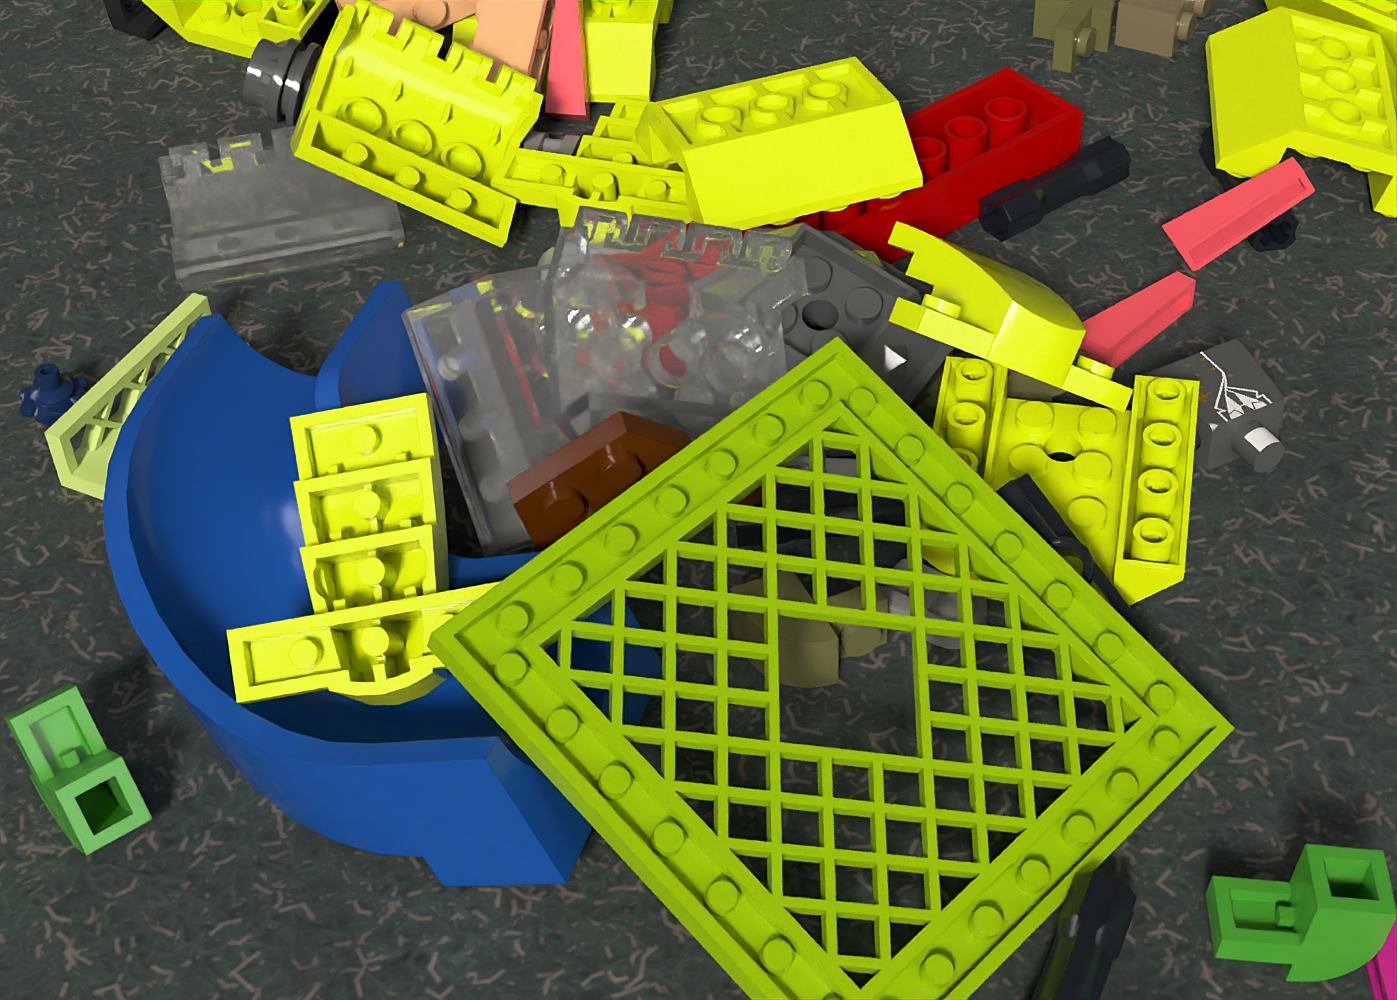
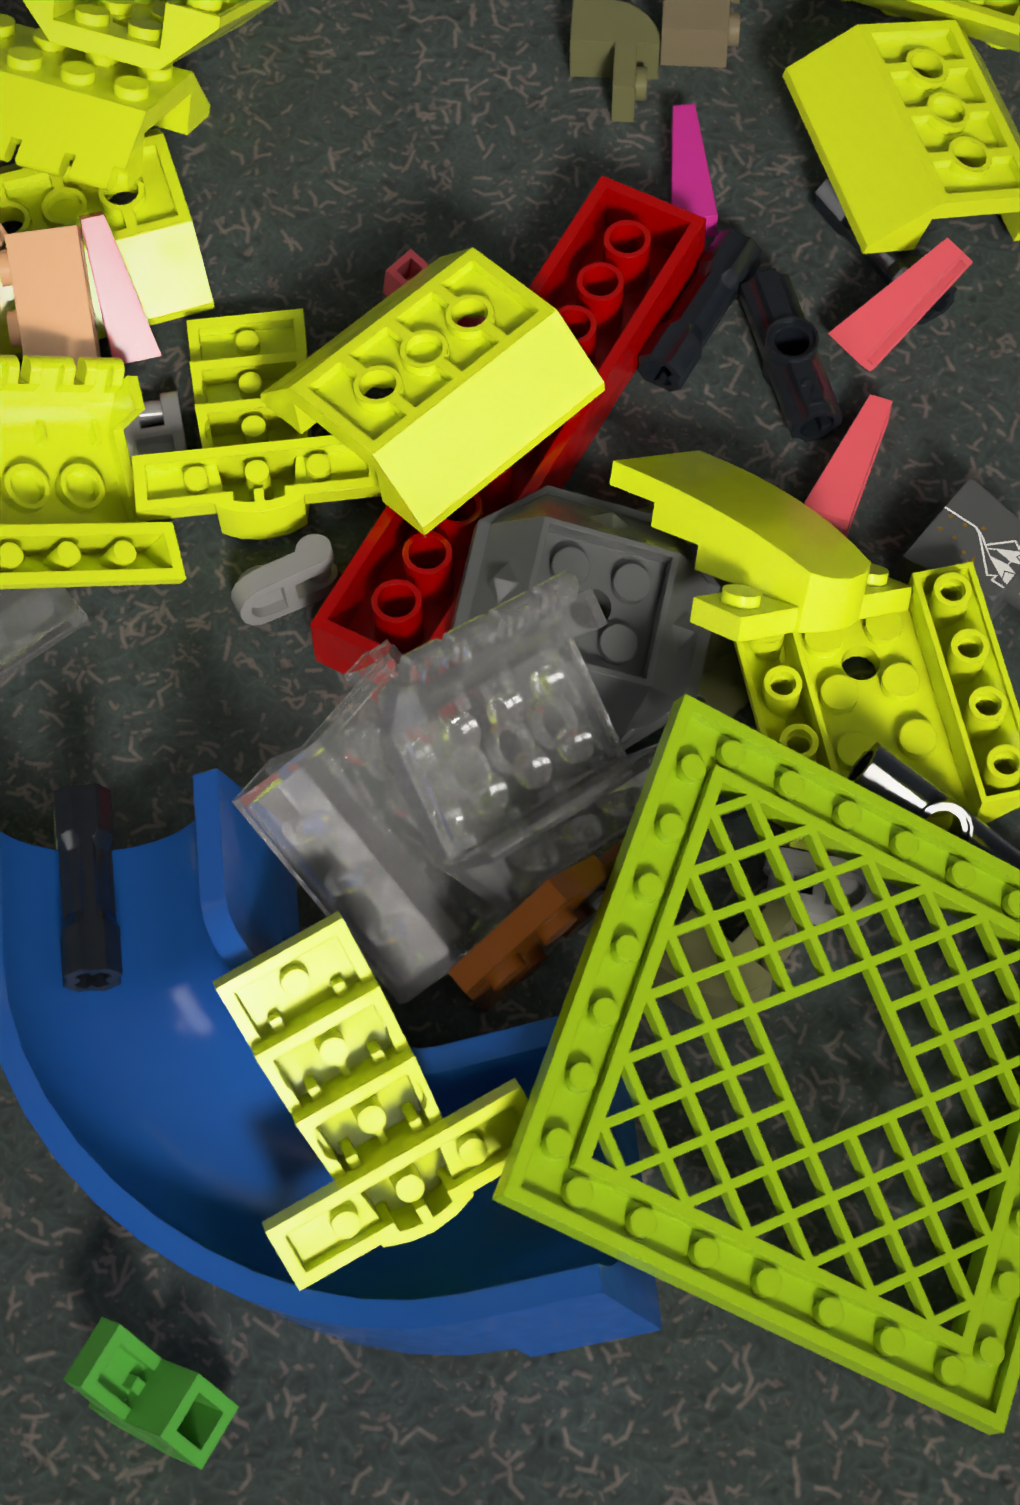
camera: 25 degrees left, 20 degrees up
(248, 408) = (89, 925): none -> black axle
(1100, 100) = (689, 168): none -> dark pink piece
(1118, 234) = (796, 379): none -> black piece

